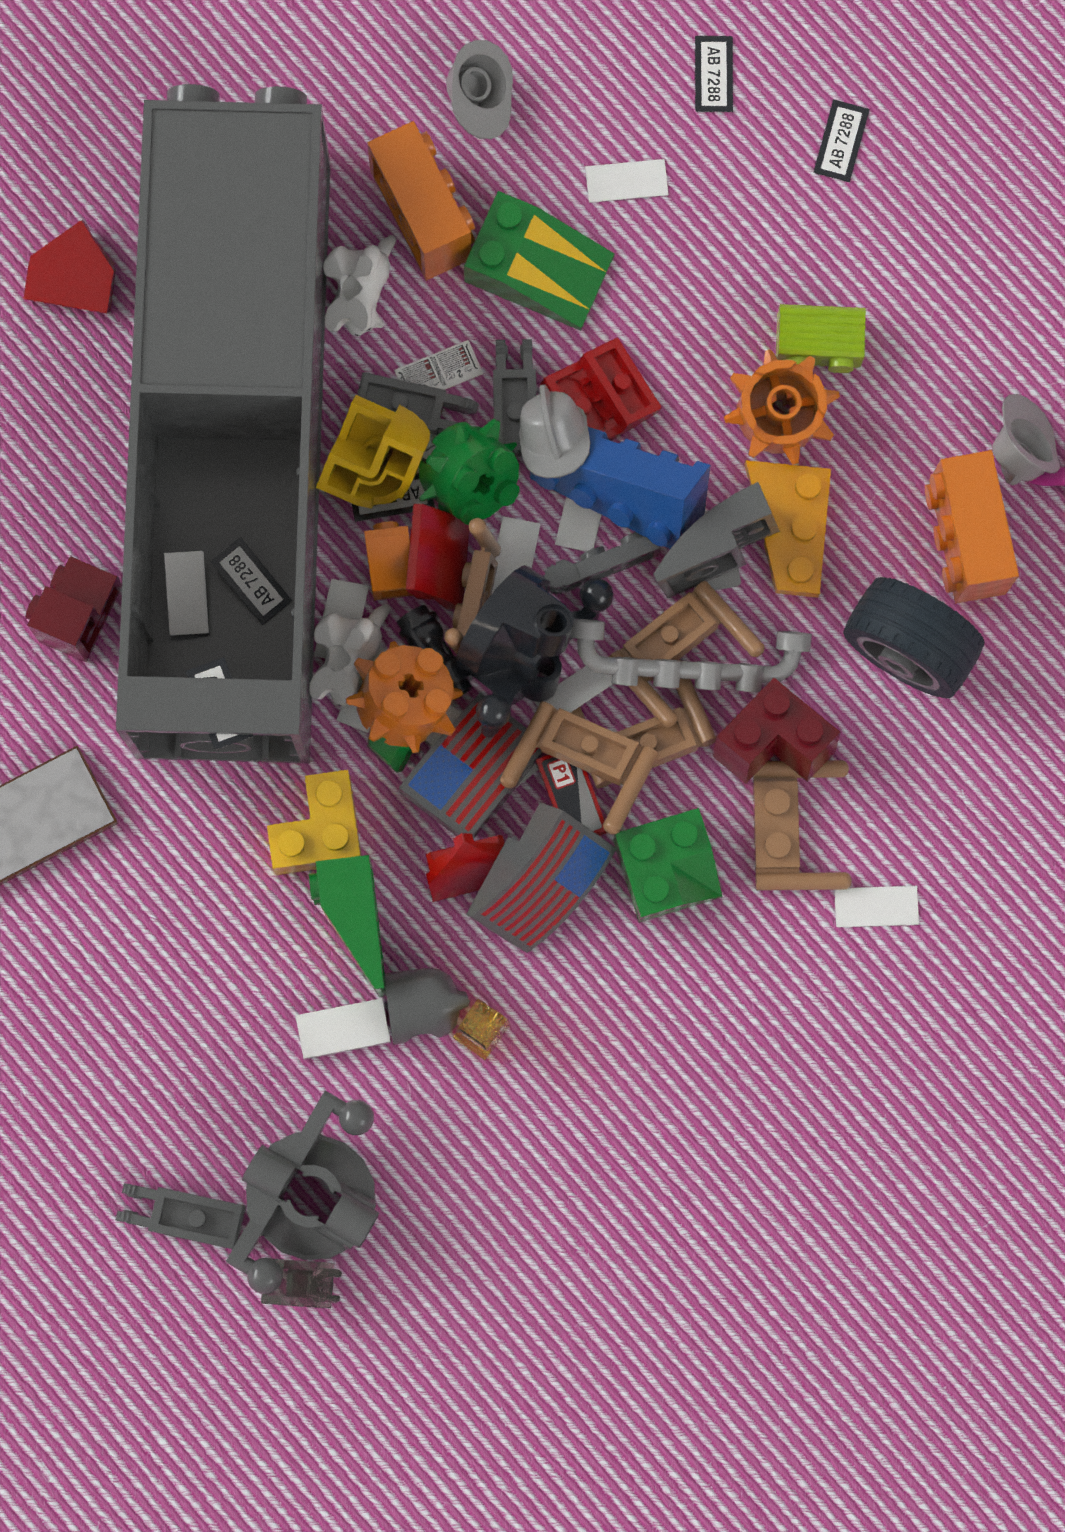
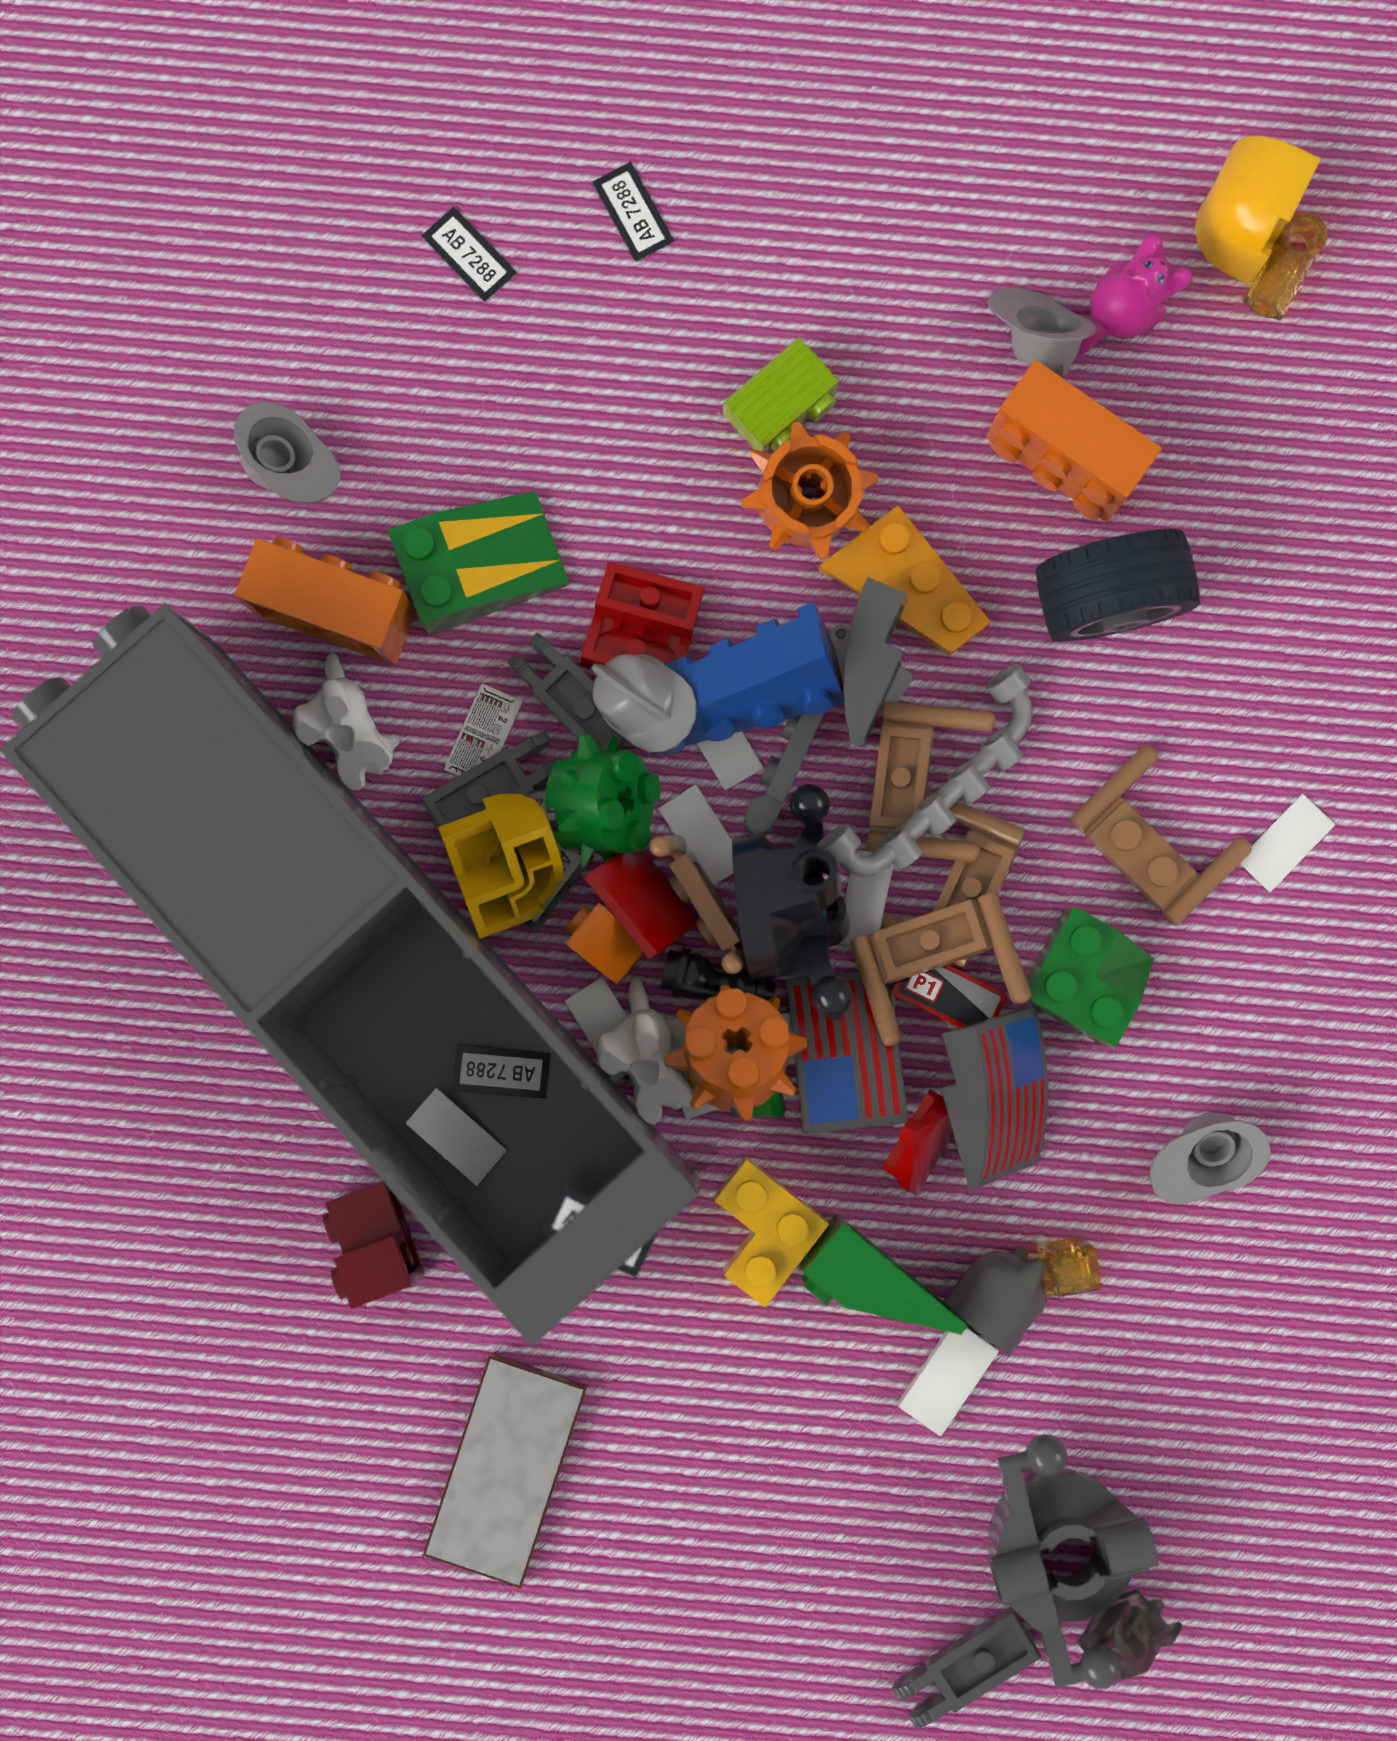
camera: 40 degrees left, 5 degrees up
(72, 272) = (83, 949): red slope -> none
(626, 180) = (484, 417): white sticker -> none
(632, 1044) = (1209, 1158): none -> light grey piece
(780, 726) = (1075, 766): dark red brick -> none

